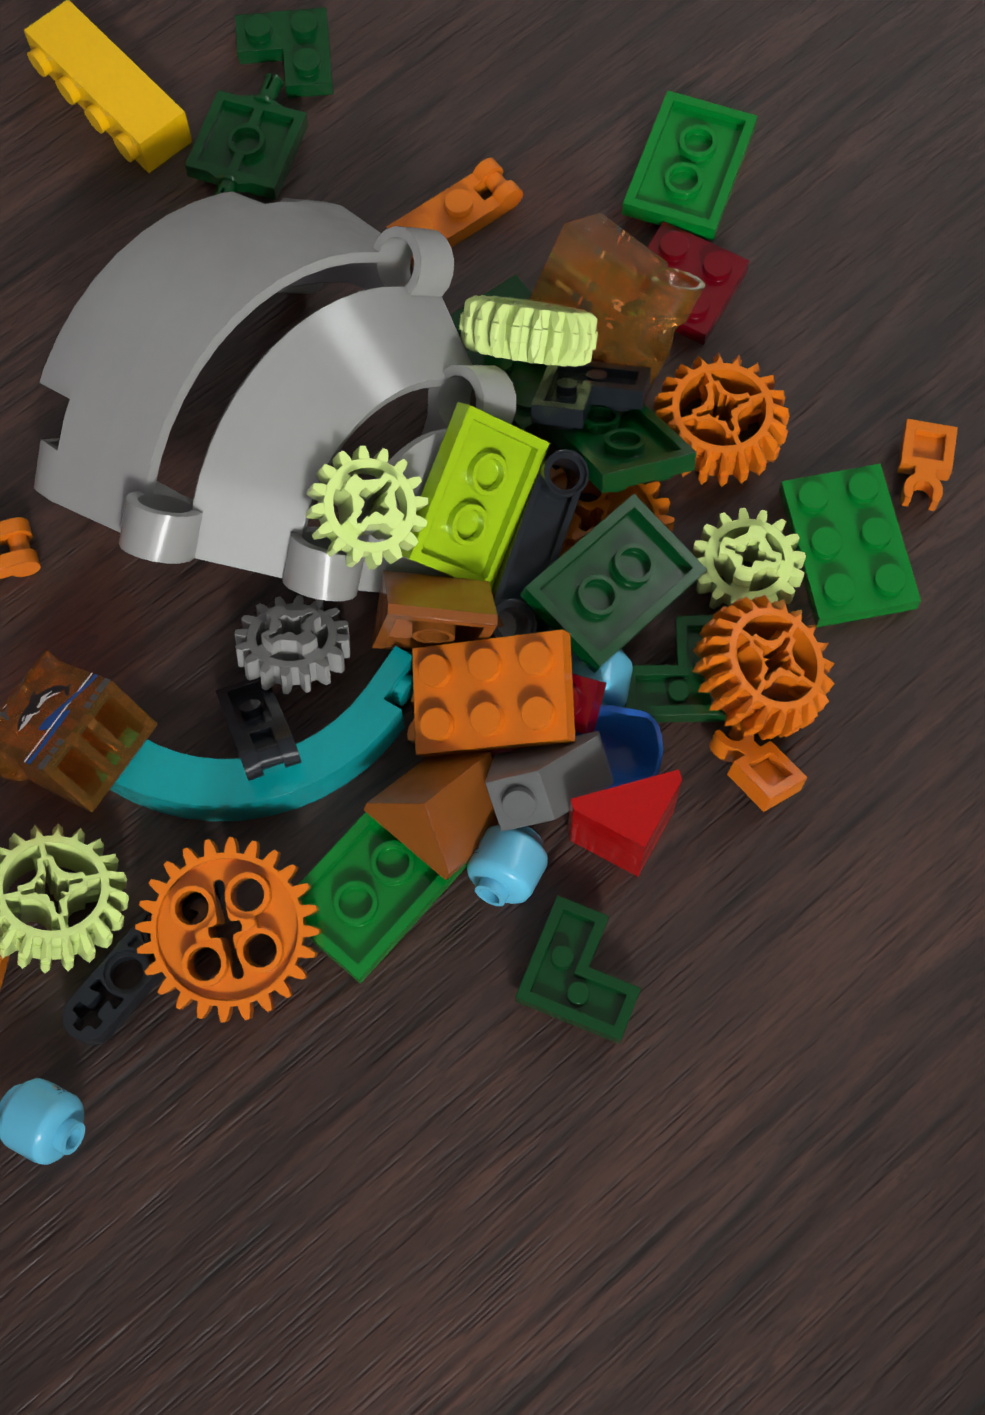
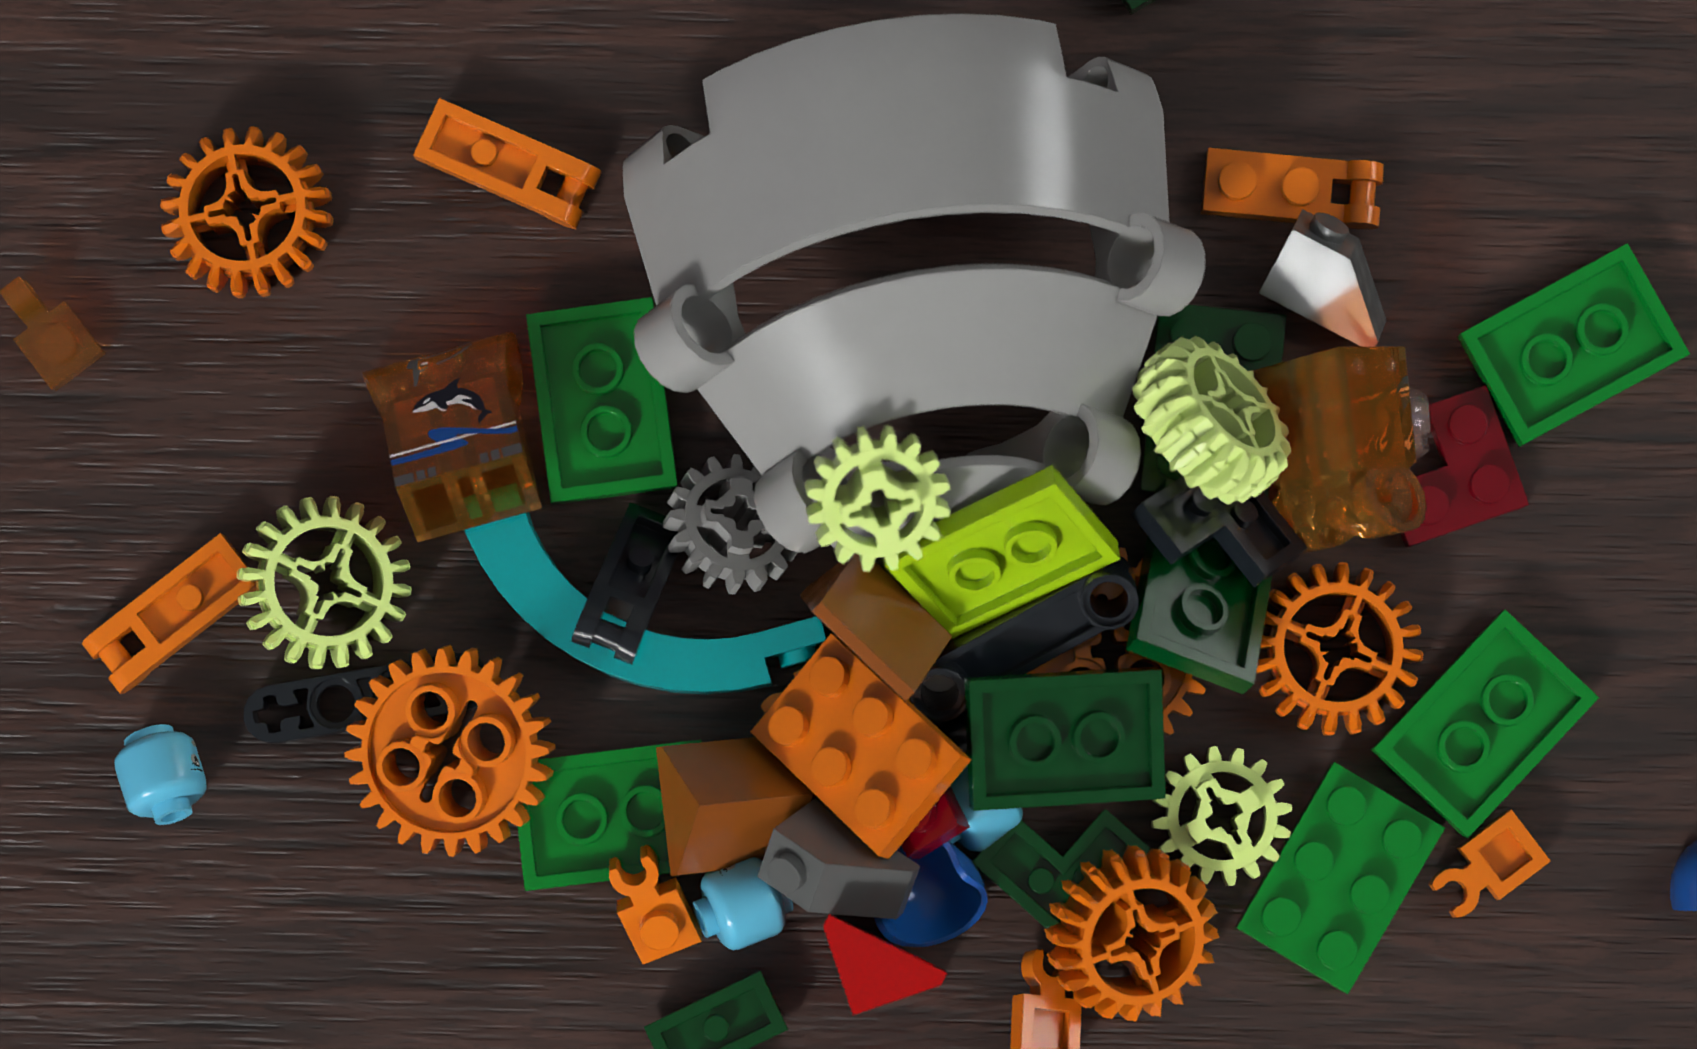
camera: 45 degrees right, 15 degrees up
(144, 645) = (599, 404): none -> green plate
(457, 919) = (653, 913): none -> orange plate
(513, 229) = (1327, 279): none -> slope
(844, 391) = (1485, 723): none -> green plate

